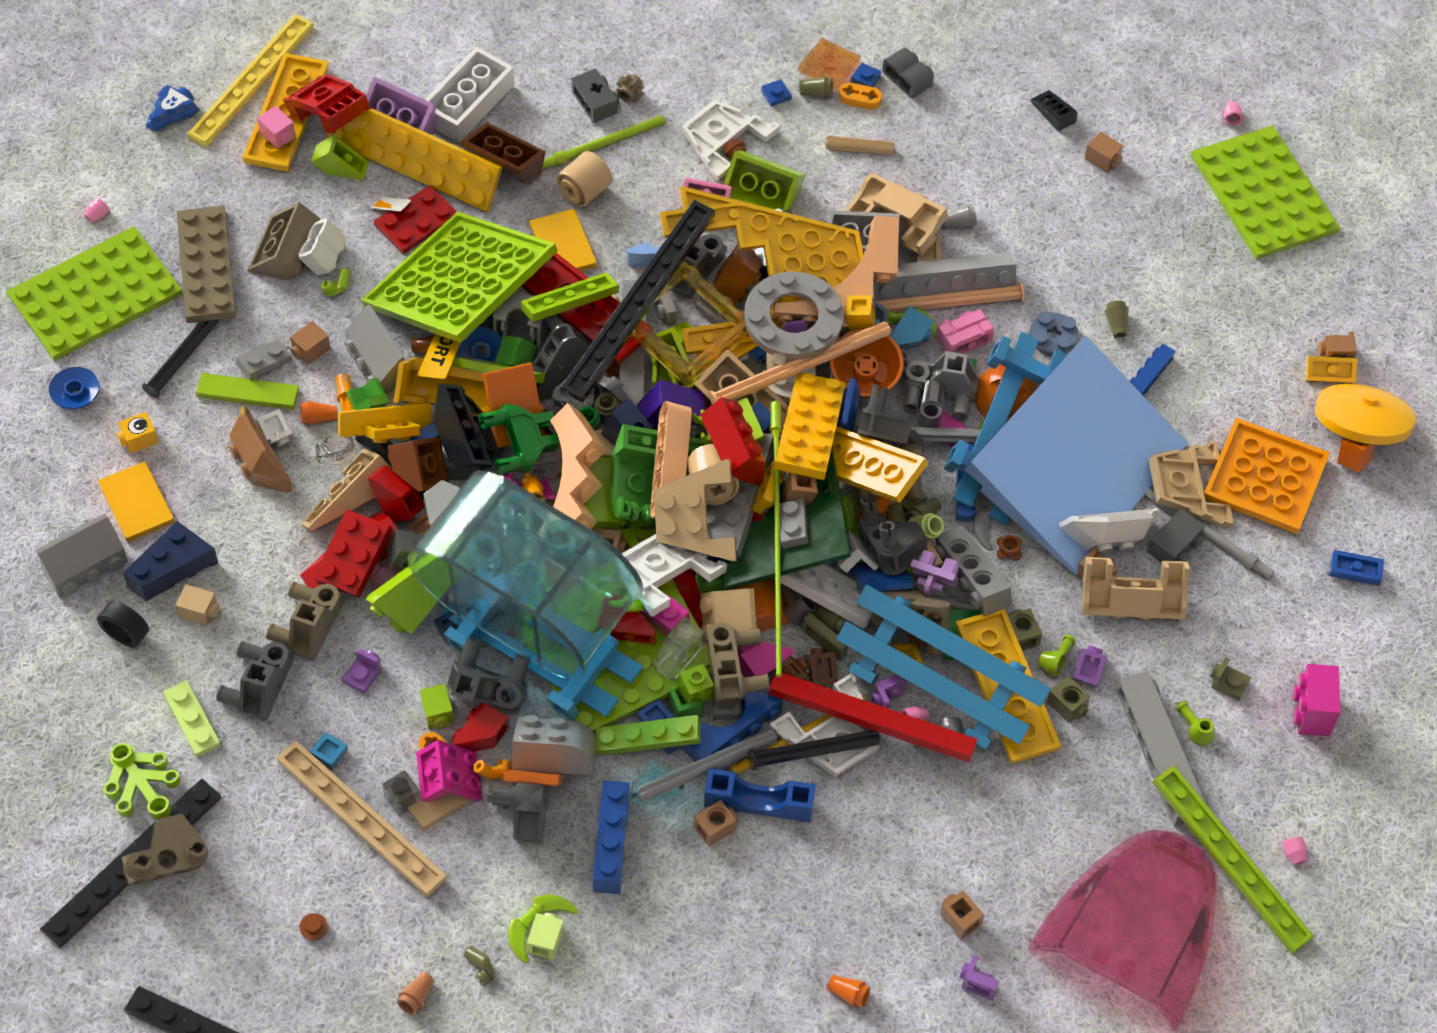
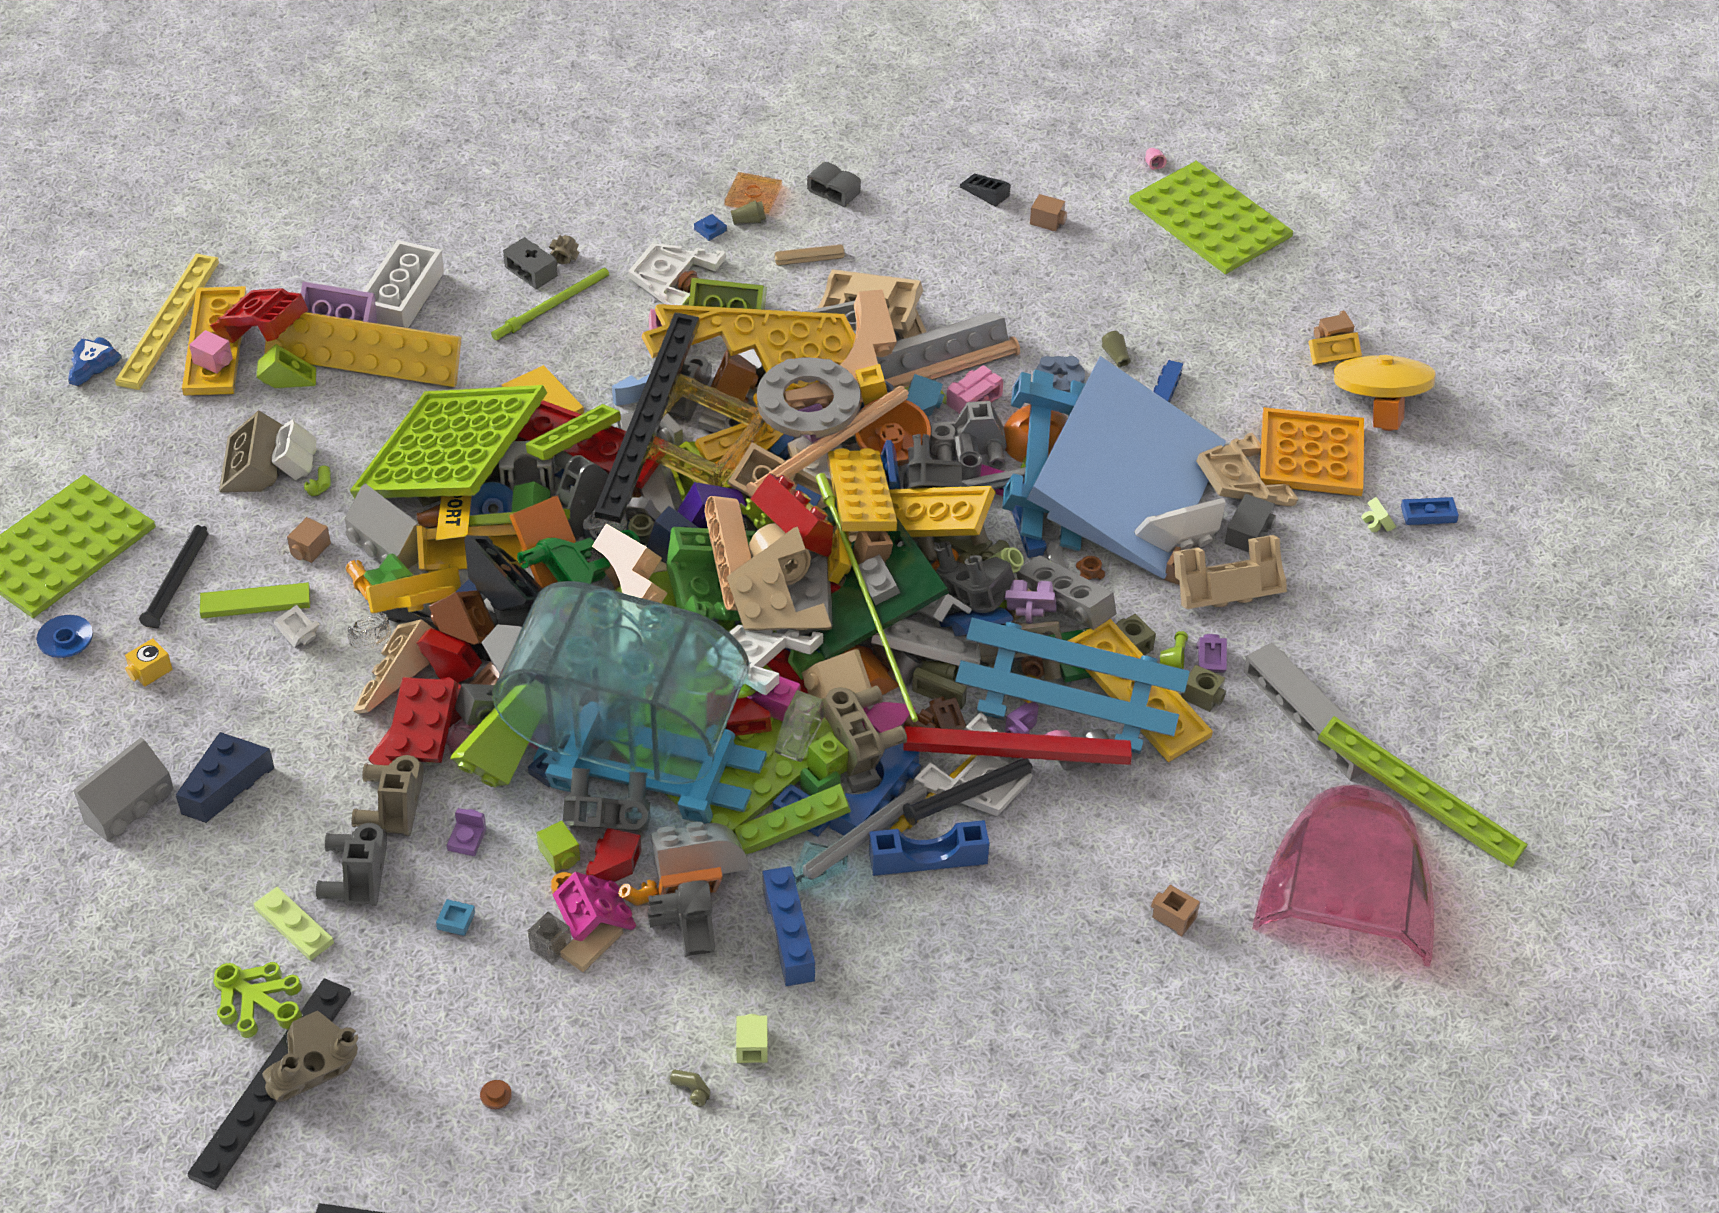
camera: 15 degrees left, 10 degrees down
(96, 210) = (38, 468): bright pink hose -> none
(123, 624) = (185, 832): black tyre -> none
(136, 501) = (166, 728): yellow tile -> none
(197, 605) = (265, 810): tan brick -> none
(205, 264) = (173, 492): dark tan plate -> none
(256, 454) = (286, 654): medium nougat wedge -> none
(263, 359) = (263, 566): light grey plate -> none
(317, 412) = (335, 603): orange cone -> none
(362, 819) = (513, 975): tan plate -> none
(392, 204) = (352, 399): white sticker -> none
(415, 994) = (630, 1134): nougat cone -> none
(416, 220) = (381, 408): red plate -> none
(506, 150) = (477, 329): reddish brown slope -> none
(540, 905) = (719, 1039): lime piece -> none
(584, 179) = (547, 334): tan piece -> none
(713, 833) = (891, 896): medium nougat brick -> none
(850, 990) = (1088, 1010): orange cone -> none
(860, 95) = (794, 213): light orange beam -> none
(866, 75) = (793, 196): blue plate -> none
(961, 218) = (933, 294): light grey cone -> none
(978, 983) = (1216, 969): medium lavender bracket -> none
(1196, 733) = (1341, 688): lime bar -> none
(1229, 680) = (1350, 637): olive bracket -> none
(1248, 560) = (1325, 528): light grey bar -> none
(1295, 850) = (1477, 771): bright pink hose -> none
(1306, 560) = (1379, 516): none -> yellowish green tile
(1317, 700) = (1444, 629): dark pink brick -> none

